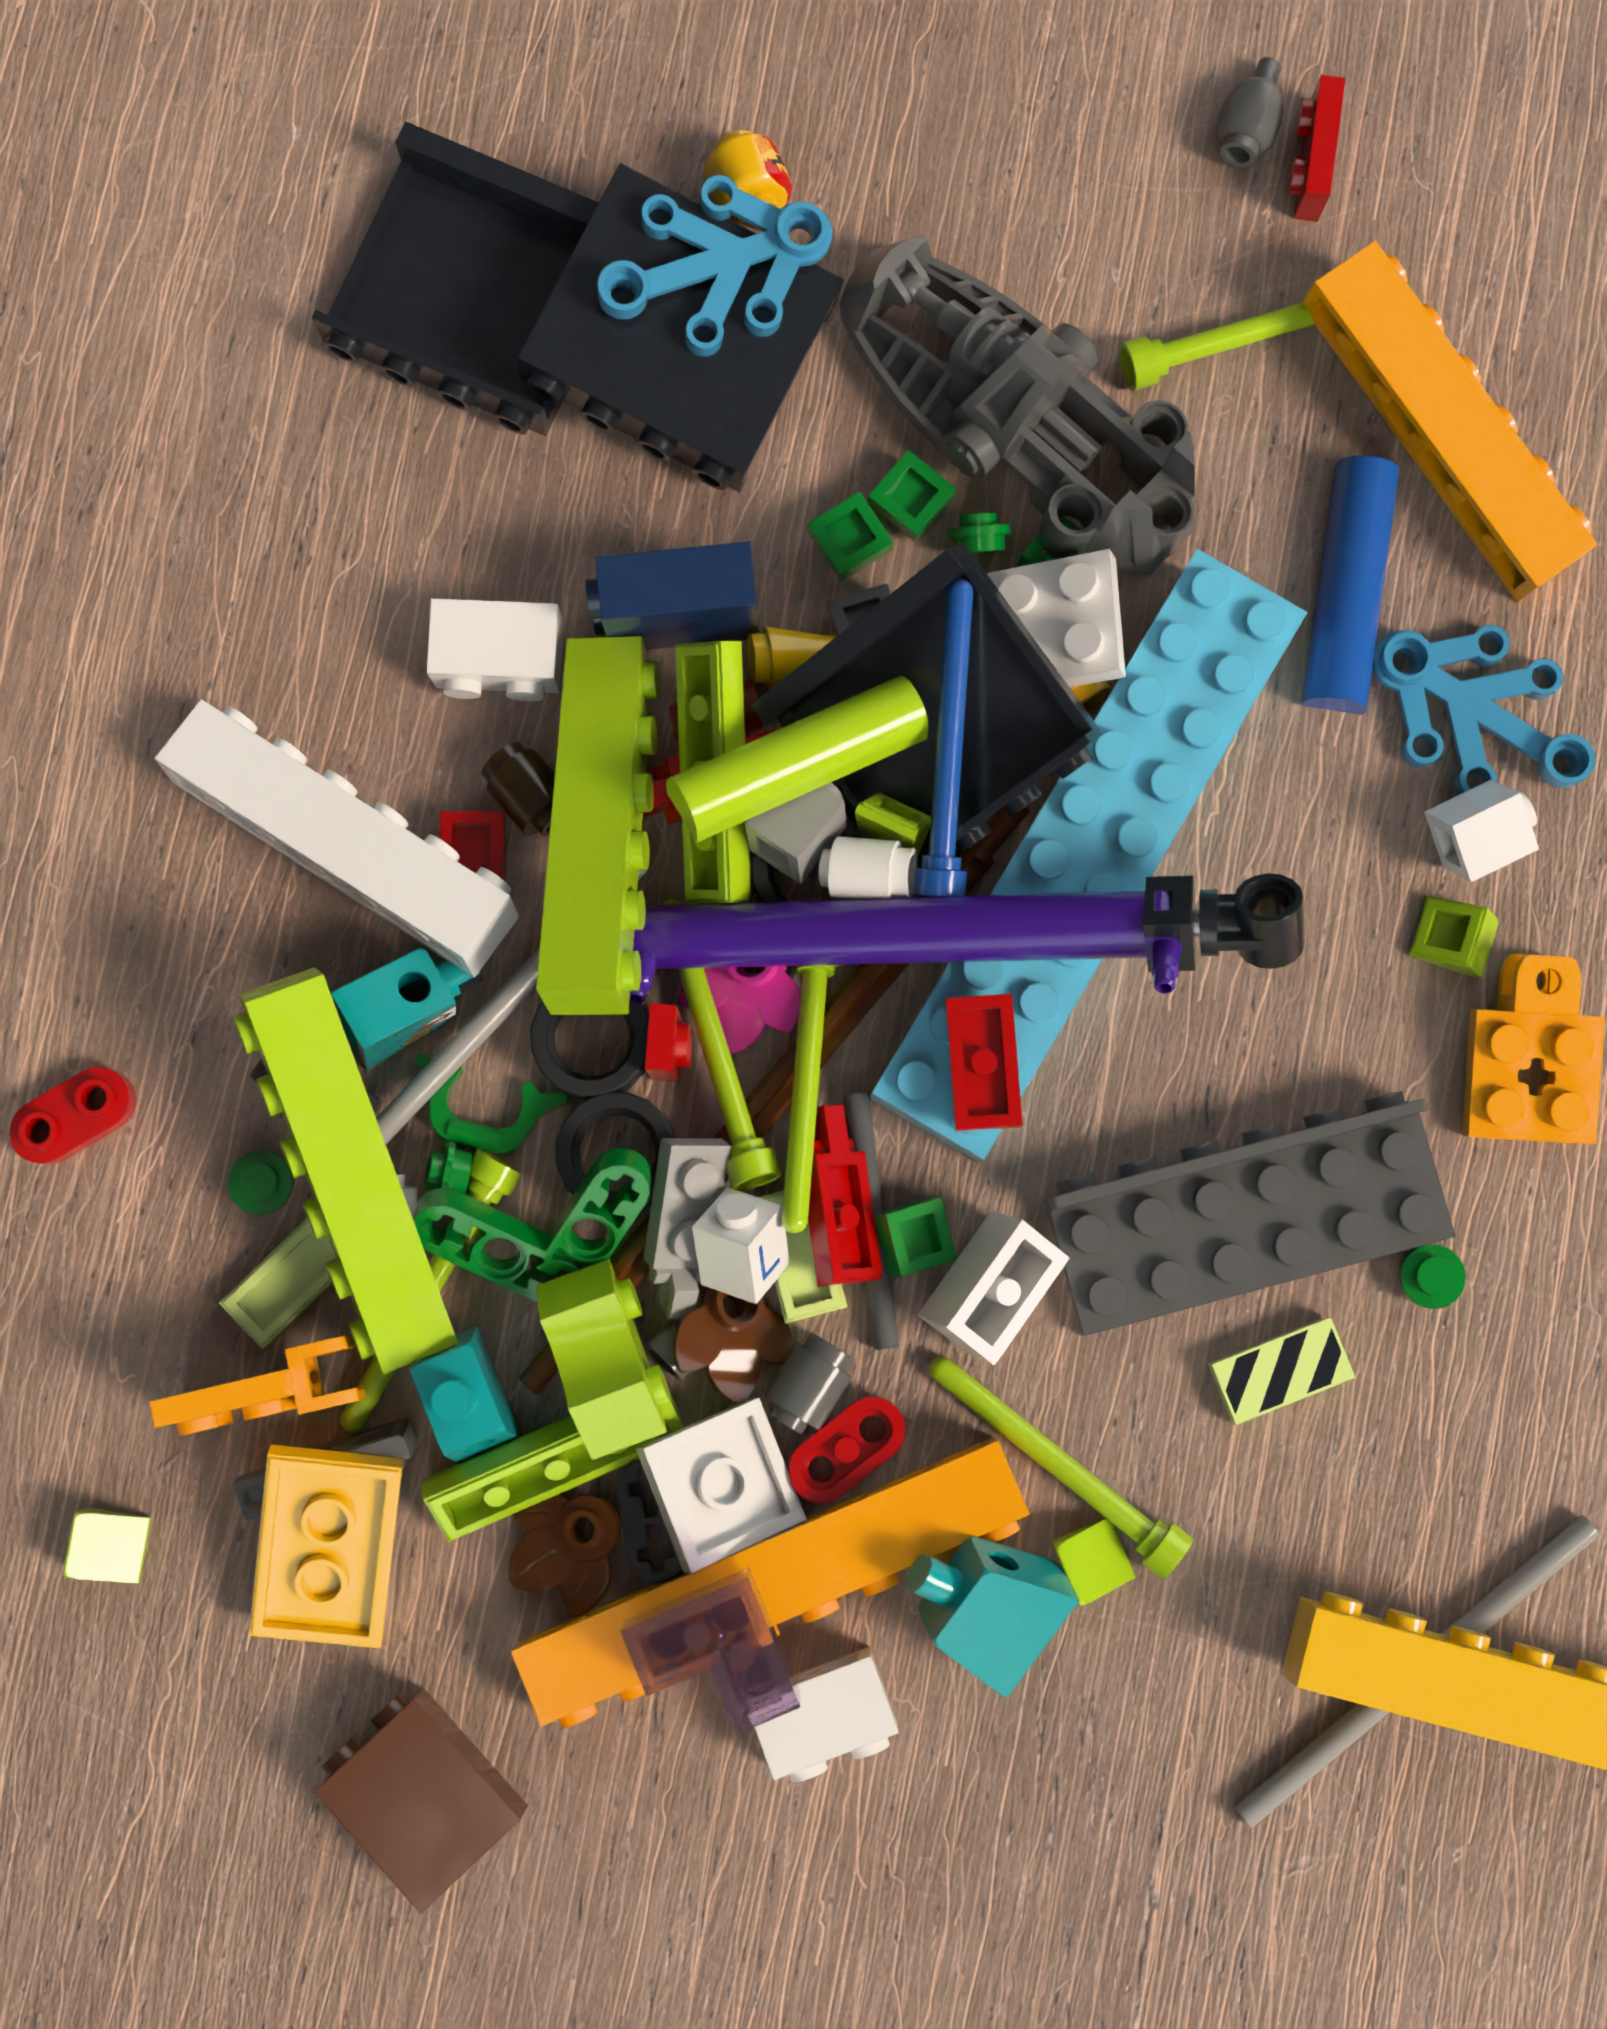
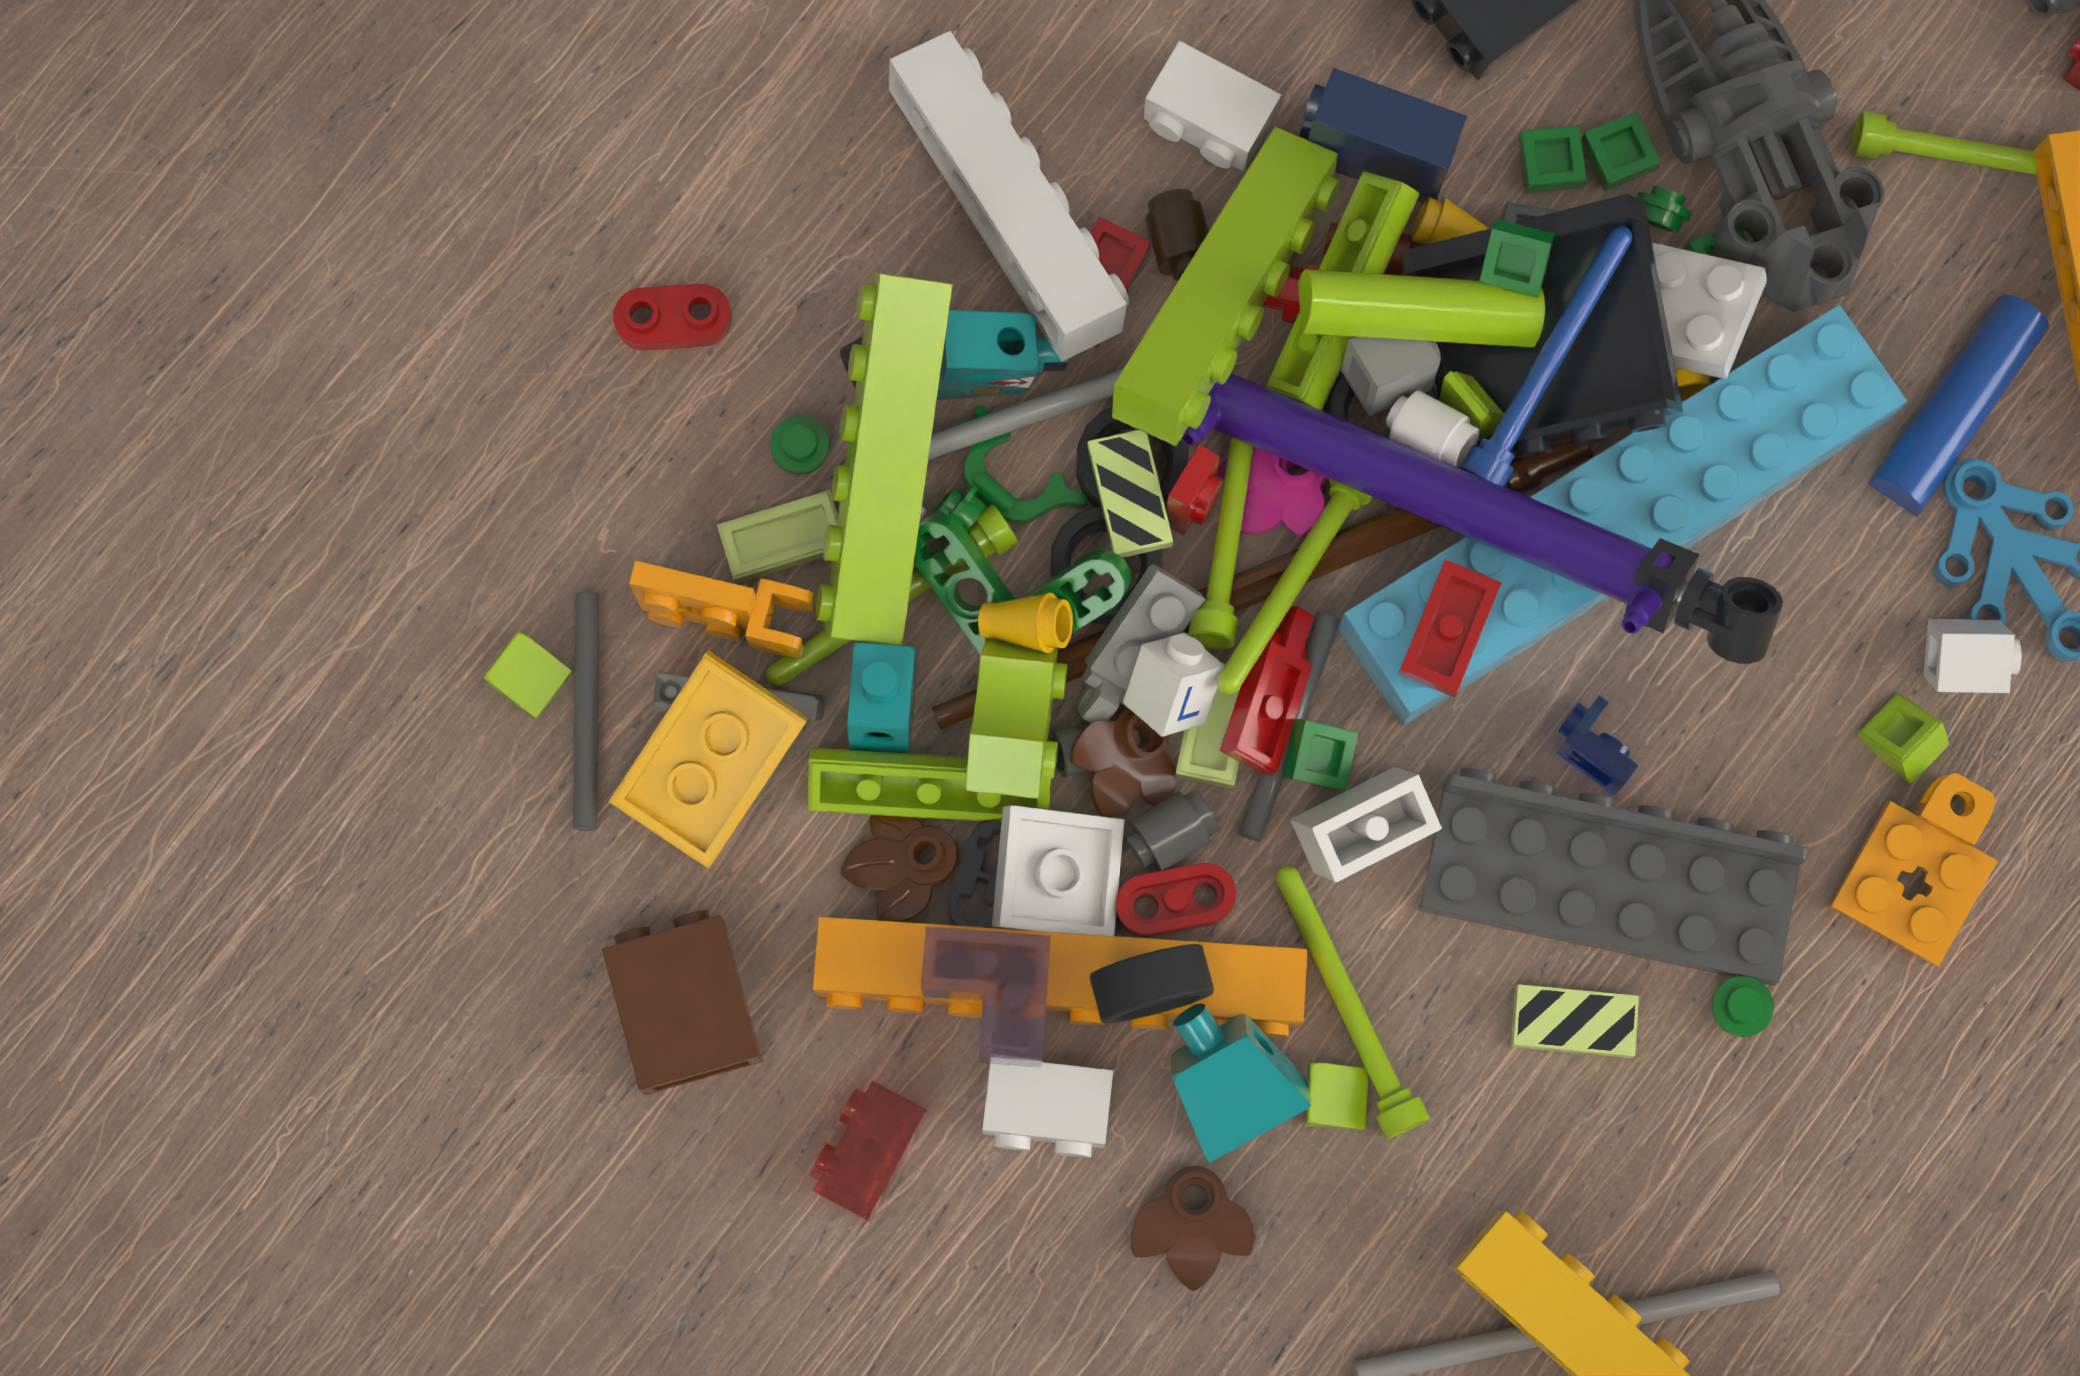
camera: 25 degrees right, 5 degrees down
(183, 1551) = (586, 711): none -> dark grey bar
(572, 1259) = (1030, 622): none -> yellow cone
(606, 1077) = (1130, 493): none -> yellowish green tile
(676, 1851) = (870, 1150): none -> clear red brick
(868, 1567) = (1151, 983): none -> black tyre
(869, 663) = (1517, 257): none -> green plate
(1019, 1765) = (1192, 1236): none -> reddish brown plate
(1182, 1103) = (1600, 756): none -> clear blue bracket

